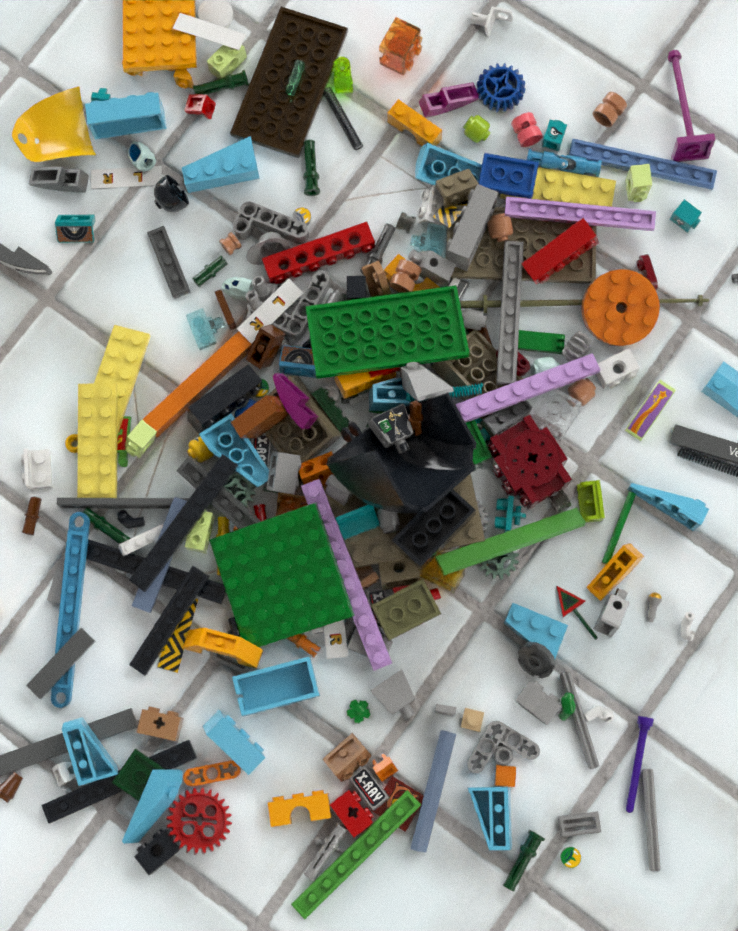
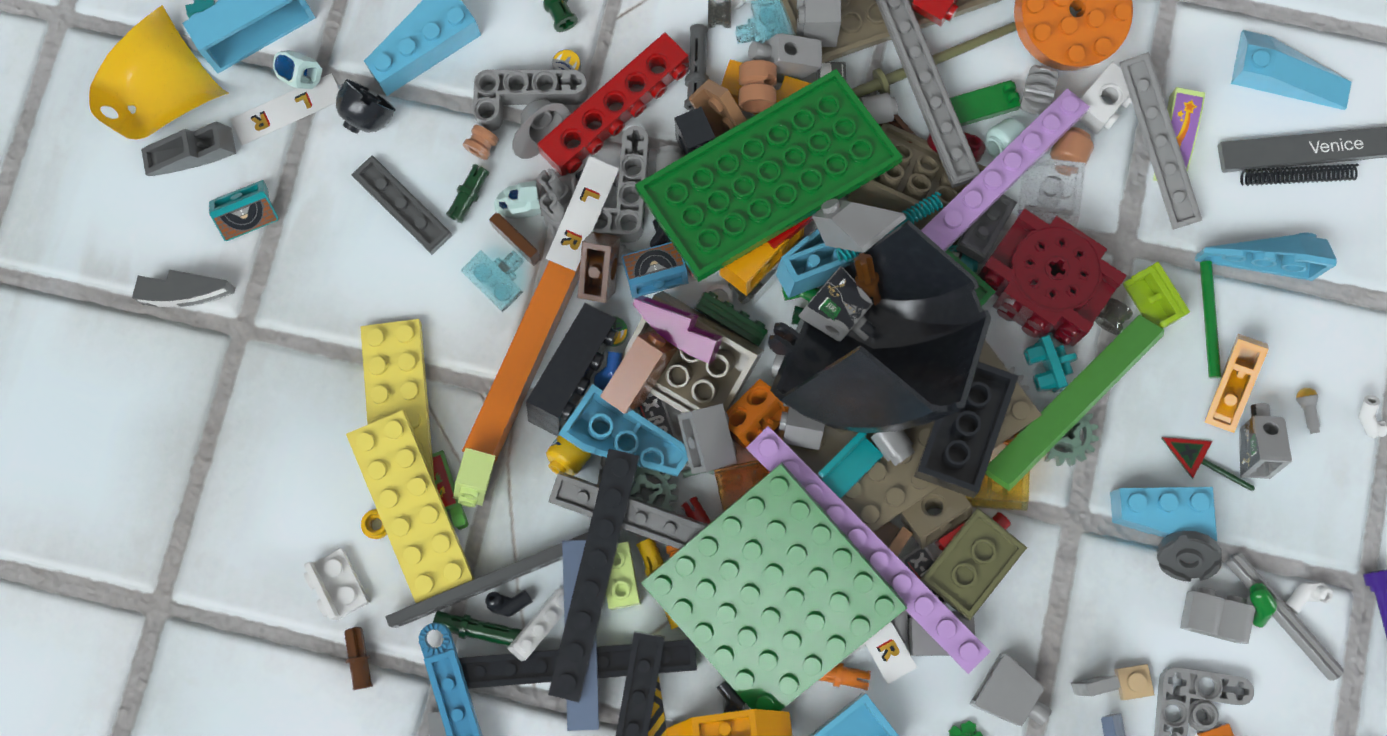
camera: 25 degrees left, 0 degrees up
(636, 408) = (1160, 141): none -> light grey tile

